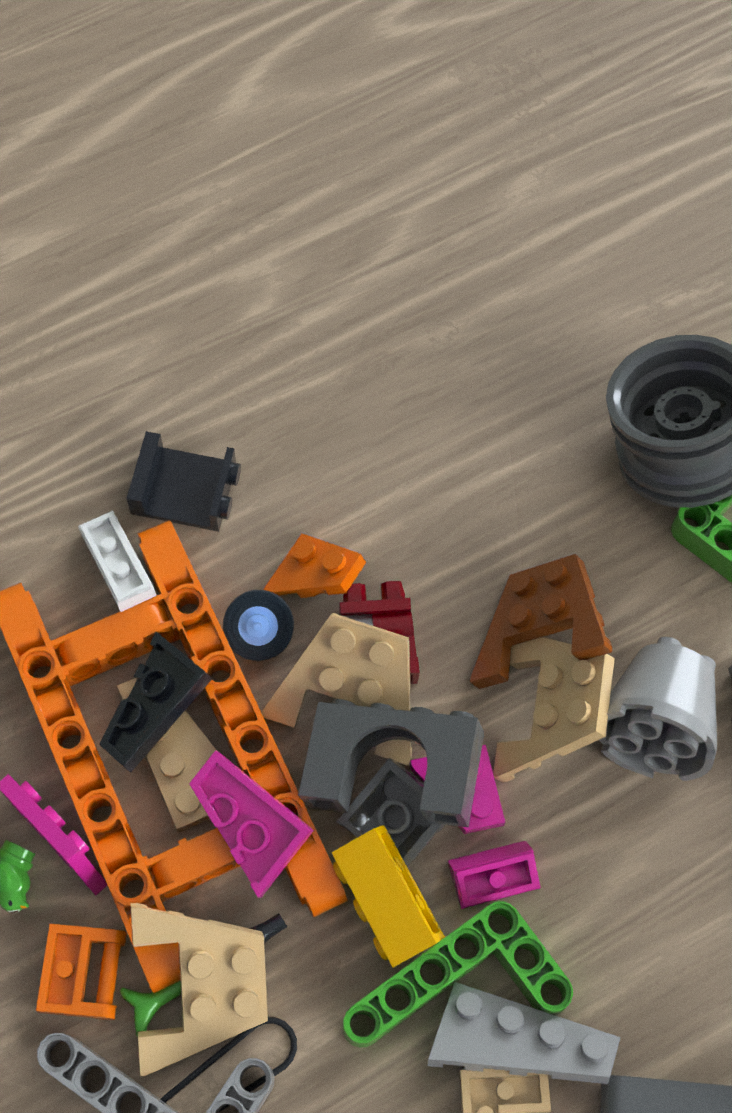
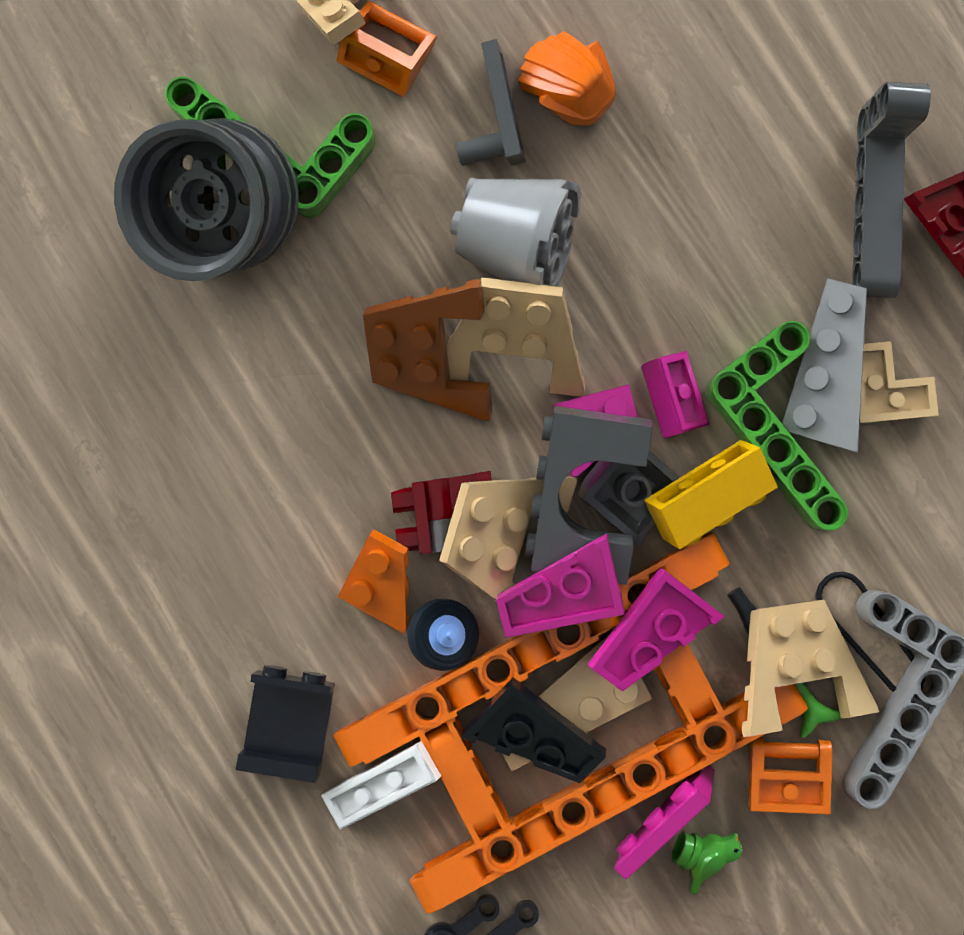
camera: 90 degrees left, 20 degrees up
(293, 732) = (564, 593): none -> dark pink wing

